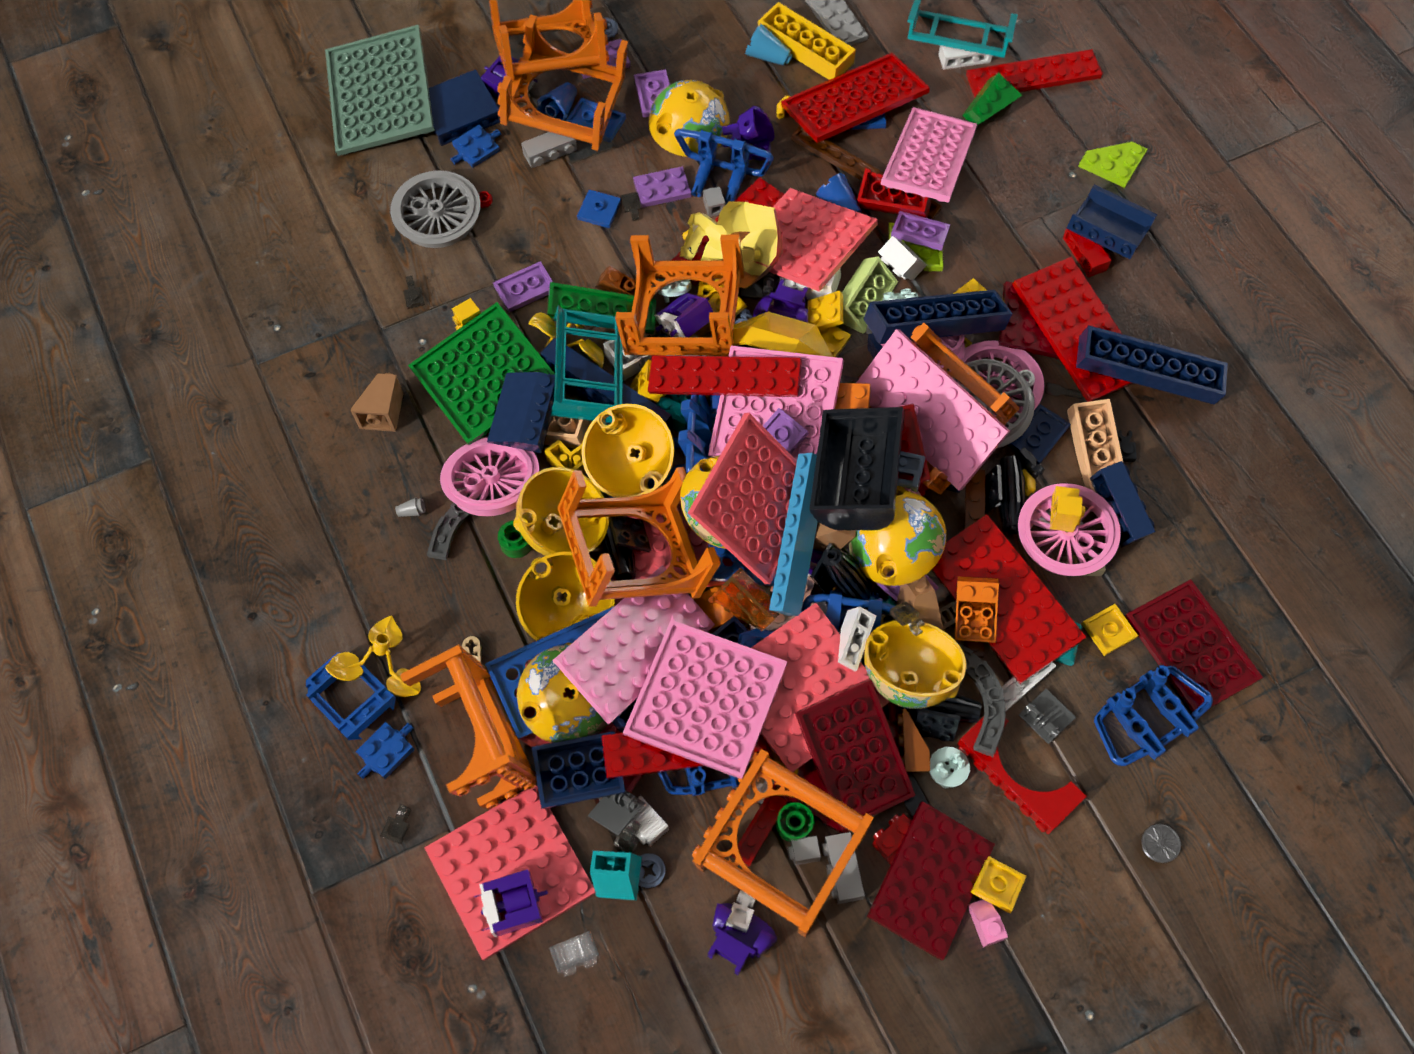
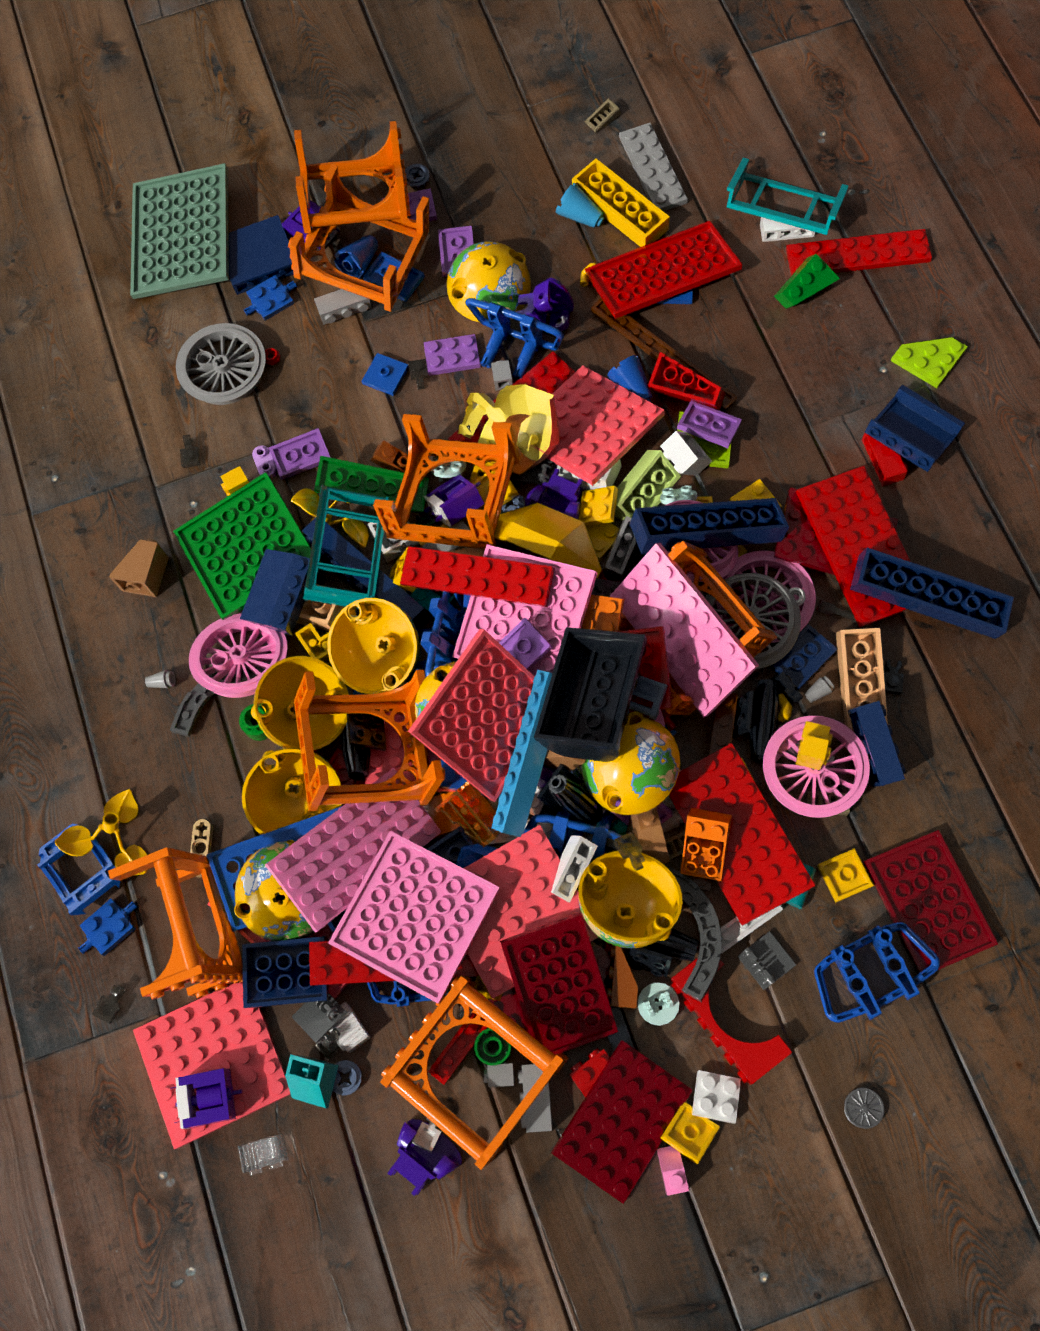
camera: 15 degrees right, 5 degrees up
(489, 295) = (264, 460): none -> lavender plate
(854, 346) = (620, 550): none -> light grey brick
(929, 155) = (730, 340): bright pink plate -> none
(1018, 848) = (716, 1097): none -> white plate
(1059, 462) = (819, 689): none -> light grey cone

